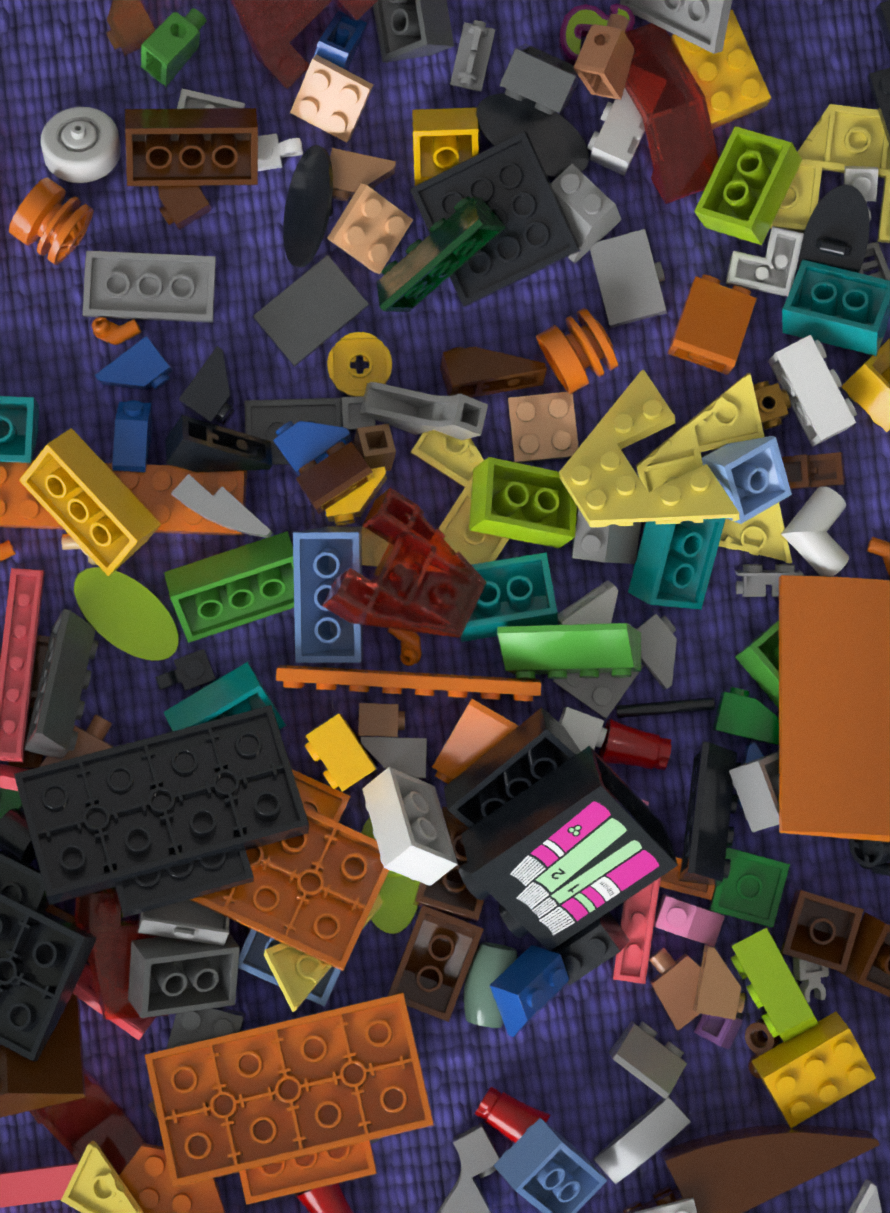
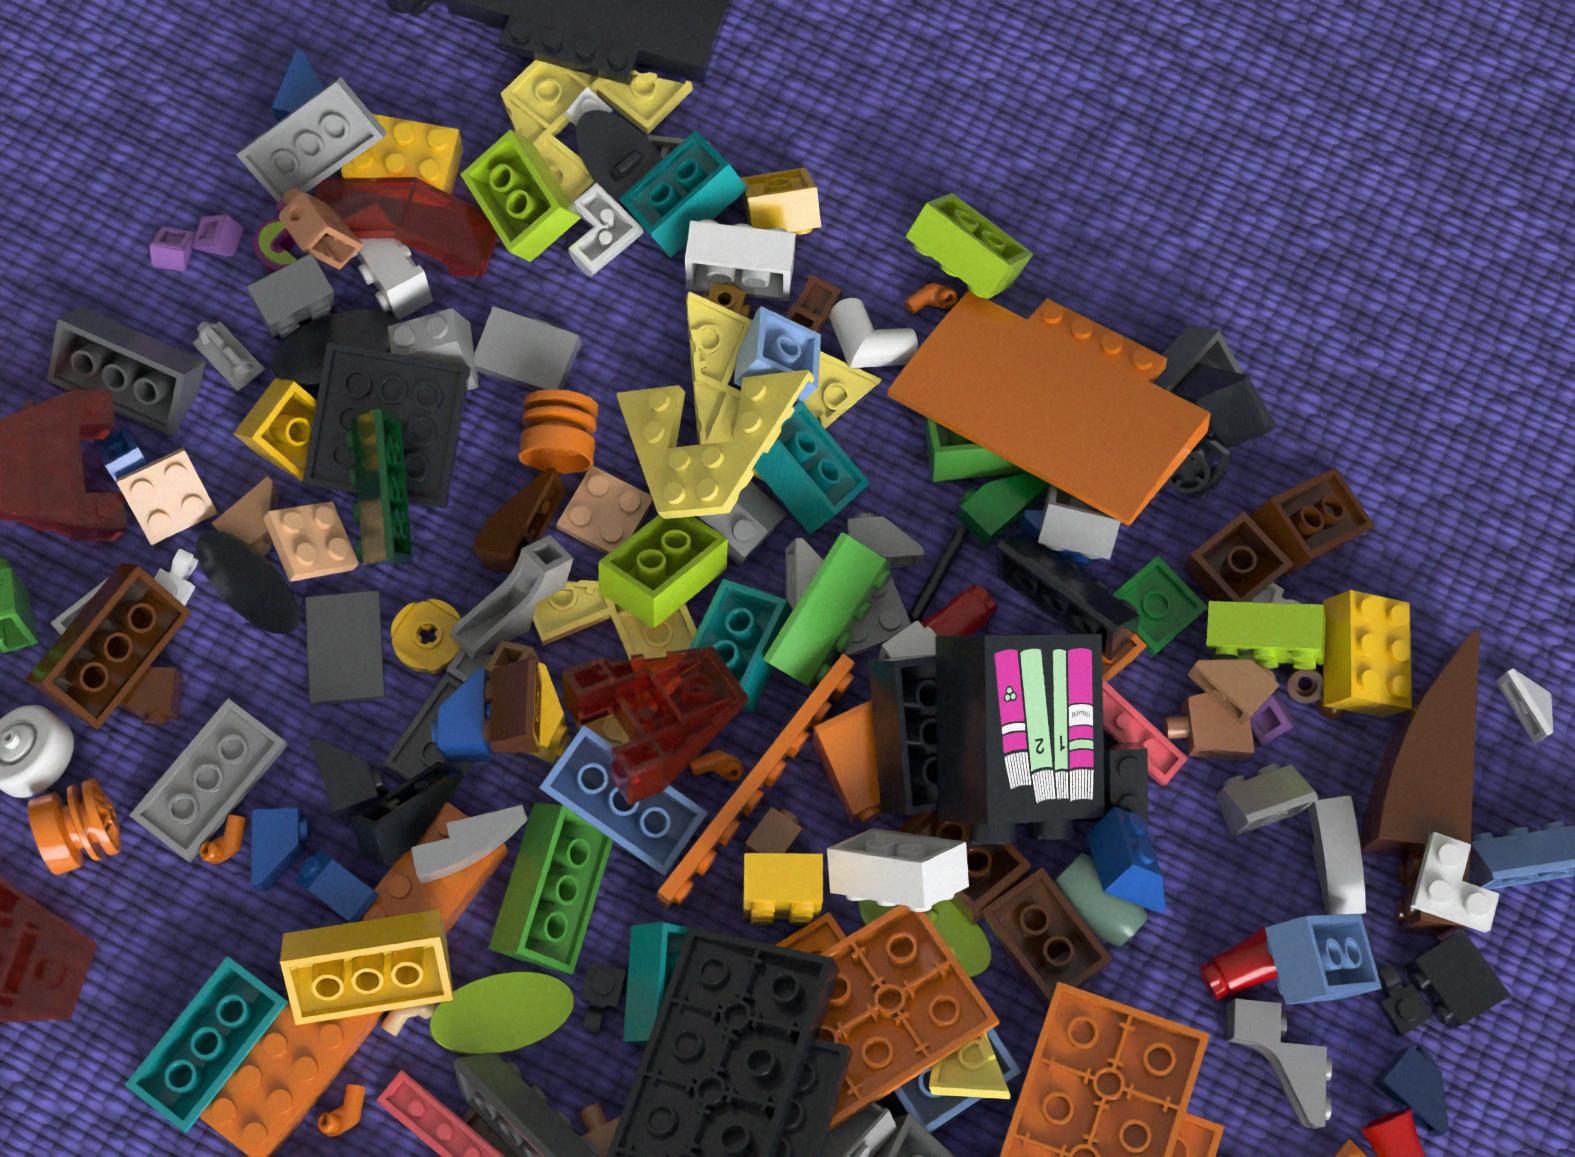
camera: 55 degrees left, 15 degrees down
(402, 754) = (823, 831): light grey slope -> none
(688, 920) = (1151, 679): bright pink slope -> none
(712, 324) = (622, 308): orange slope -> none
(755, 579) = (875, 420): light grey hinge -> none

